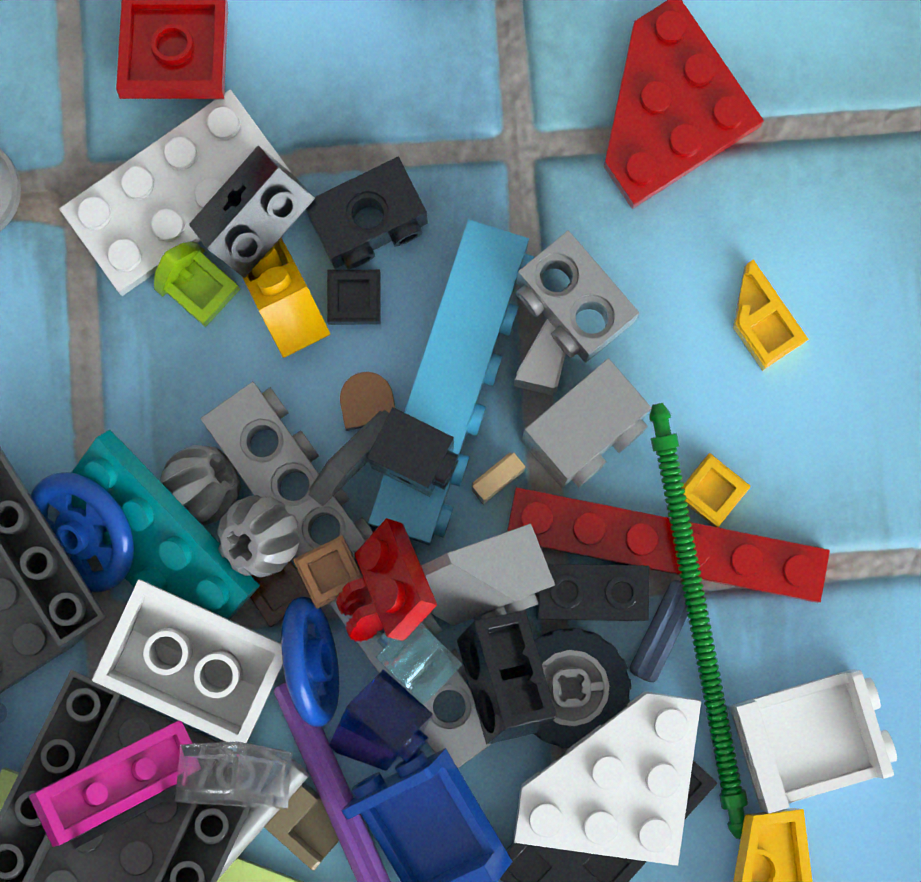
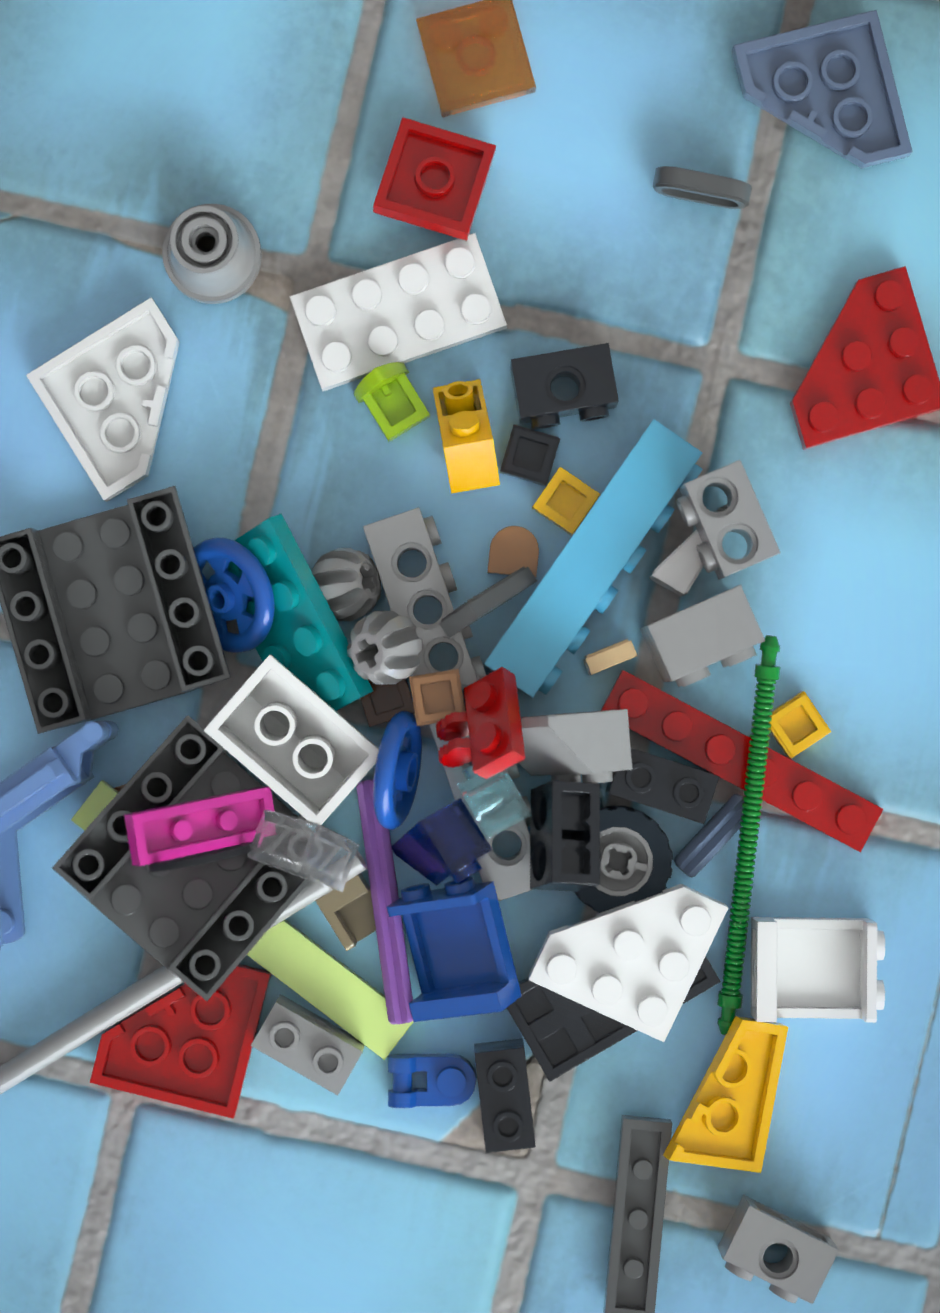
camera: 15 degrees right, 5 degrees up
(251, 211) = (462, 353): black brick -> none
(403, 332) = (566, 501): none -> yellow tile
(413, 453) = (544, 618): black brick -> none
(764, 319) = (890, 586): yellow tile -> none

